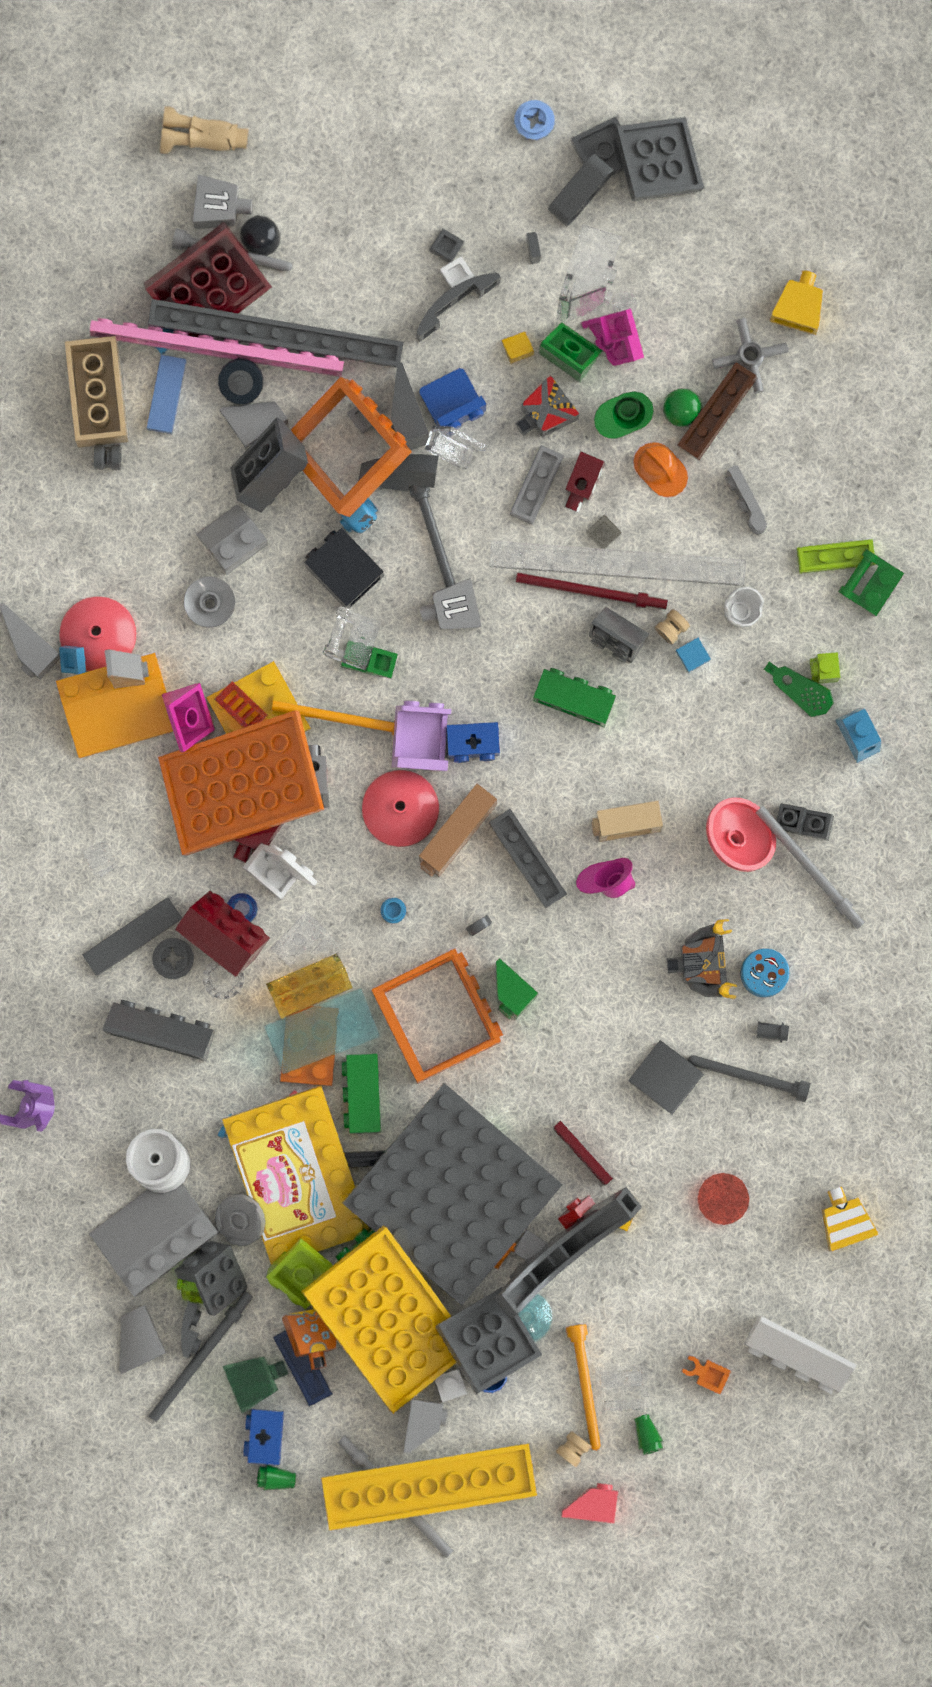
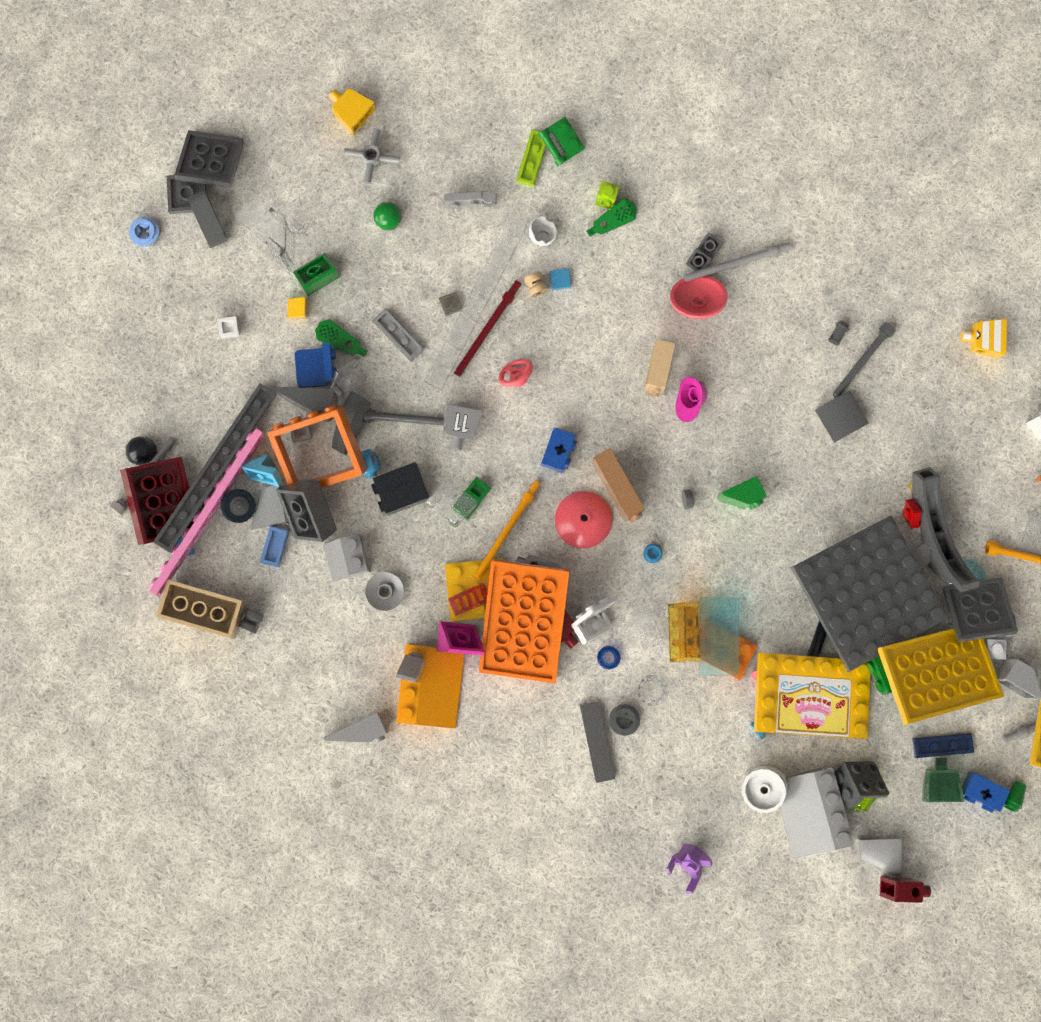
camera: 65 degrees left, 0 degrees up
(72, 659) = (385, 704): dark azure plate -> none
(100, 1372) = (903, 889): none -> dark red torso
(113, 619) = (385, 687): coral dish -> none
(159, 1031) = (673, 750): dark grey slope -> none
(166, 394) = (224, 561): medium blue tile -> none
(189, 1340) = (898, 817): dark grey slope -> none
(203, 133) = (50, 460): tan piece -> none
(210, 446) = (274, 546): none -> medium blue tile
(218, 203) = (104, 469): light grey torso -> none
(222, 933) = (624, 677): dark red brick -> none
(232, 1316) = (890, 781): dark grey bar -> none
(240, 1219) = (827, 747): light grey tile -> none
(296, 392) = (263, 470): none -> medium azure slope
(296, 1271) = (882, 720): lime plate -> none
(309, 1336) = (928, 733): orange torso -> none
(362, 1094) = (772, 627): green brick -> none
(420, 736) = (541, 485): lavender panel -> none
(446, 246) = (205, 326): dark grey tile -> none
(471, 986) = (744, 520): orange window -> none
(481, 284) = (243, 315): dark grey slope -> none
(500, 417) = (341, 339): none -> green piece
(527, 858) = (654, 447): dark grey plate -> none
(533, 247) = (233, 268): dark grey tile -> none
(546, 653) = (519, 376): none -> coral piece
(547, 410) = (350, 305): torso -> none
(574, 697) = (556, 369): green brick -> none
(582, 1153) = (872, 493): dark red tile -> none
(588, 469) = (403, 294): dark red torso -> none
(616, 336) = (319, 238): dark pink slope -> none
(617, 635) = (528, 321): dark grey slope -> none
(623, 414) = (376, 254): green piece -> none
(660, 469) = (423, 248): orange piece -> none
(704, 962) = (774, 358): torso -> none
(714, 1200) = (934, 417): clear red tile -> none
(717, 411) = (400, 192): reddish brown plate -> none
(764, 972) = (797, 321): dark azure head -> none
(859, 734) = (660, 191): dark azure torso -> none

